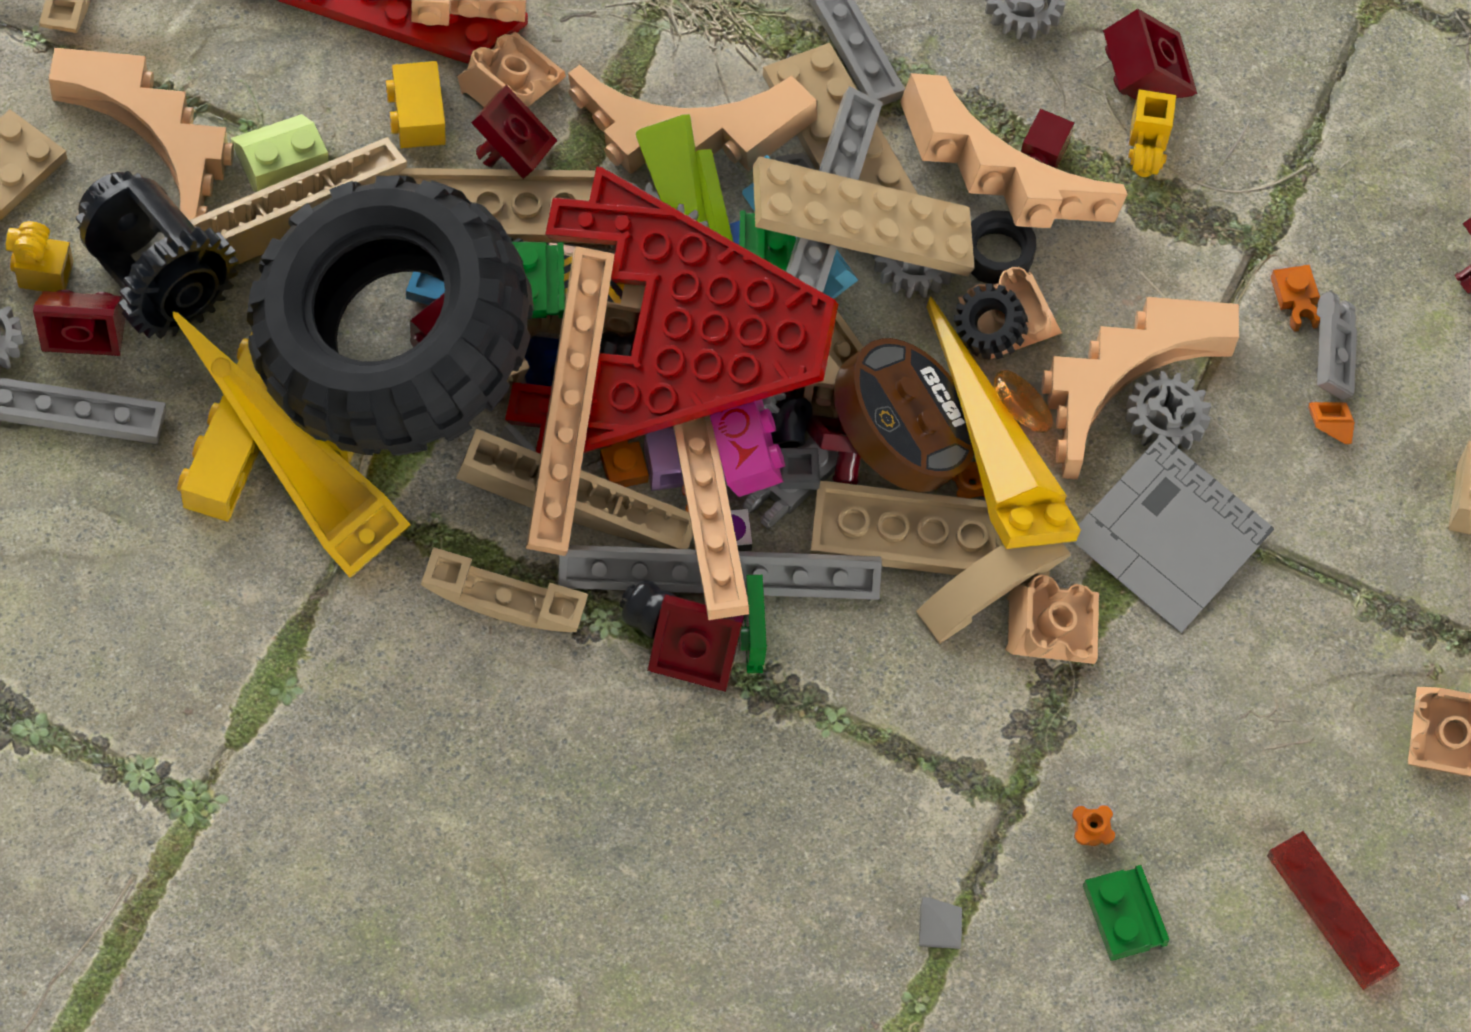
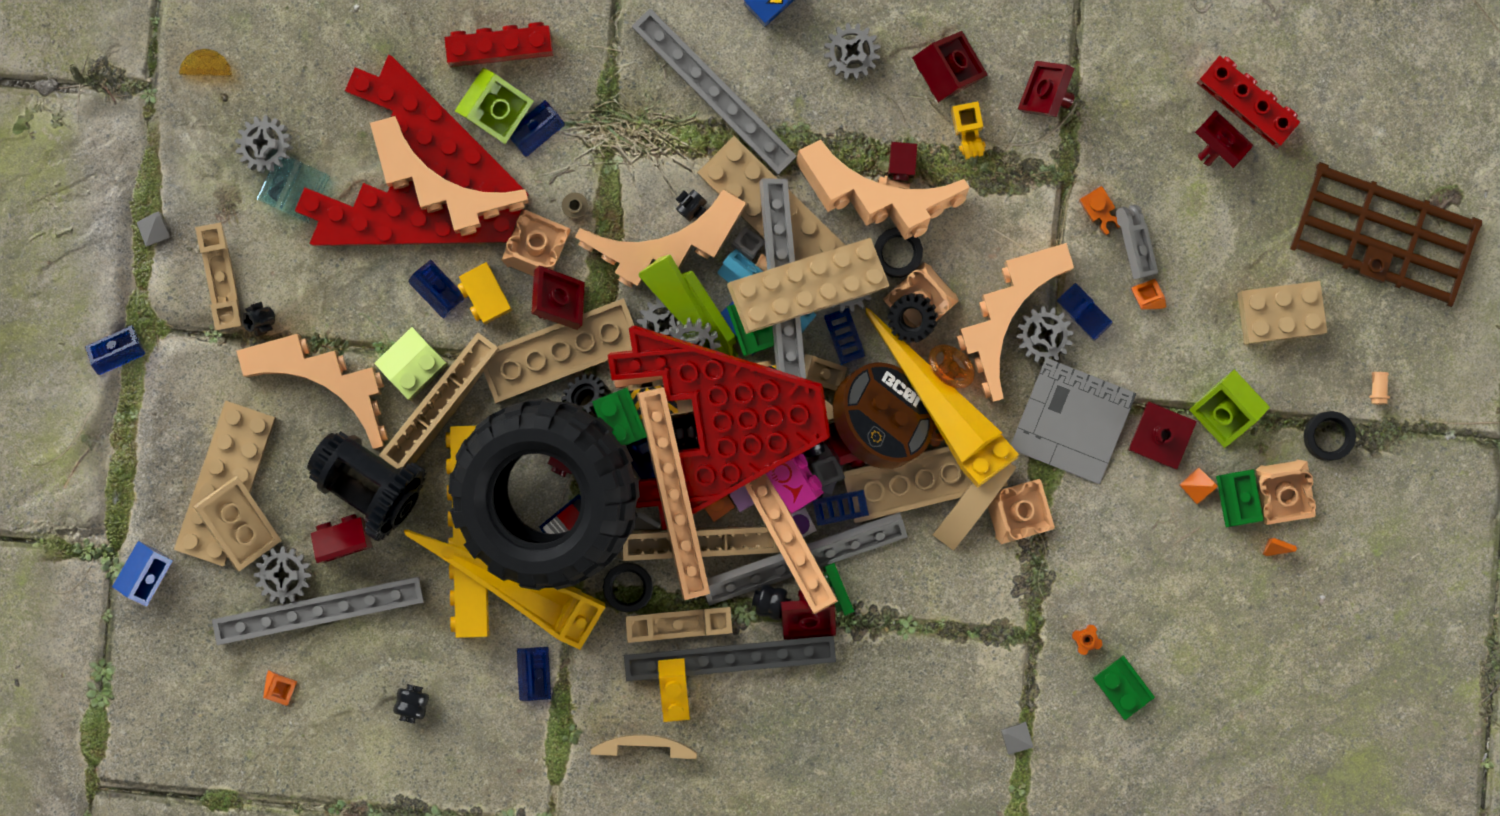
camera: 15 degrees left, 25 degrees up
(39, 261) = (296, 507): yellow brick -> none
(76, 558) = (411, 703): none -> black piece
(103, 29) = (258, 319): none -> black gear
(269, 588) = (533, 673): none -> clear blue slope
(336, 715) = (677, 749): none -> tan slope
(354, 83) = (436, 288): none -> clear blue slope
(456, 494) = (608, 590): none -> black tyre
(460, 665) = (673, 690): none -> yellow brick
(559, 664) = (735, 657): none -> dark grey plate
(586, 58) = (574, 214): none -> dark tan plate
(737, 89) = (691, 205): none -> black gear
(781, 528) = (832, 519): none -> clear blue slope
(901, 320) = (844, 359): none -> clear blue slope
(1233, 408) = (1084, 311): none -> clear blue slope
(1273, 124) = (1047, 89): none -> dark red tile
(1293, 599) = (1162, 435): none -> dark red tile
(1326, 682) = (1198, 485): none -> orange slope
(1333, 910) = (1246, 638): clear red plate -> none
(1382, 715) = (1240, 498): none -> green plate
(1402, 592) = (1229, 408): none -> lime slope
(1421, 799) = (1276, 546): none -> orange slope

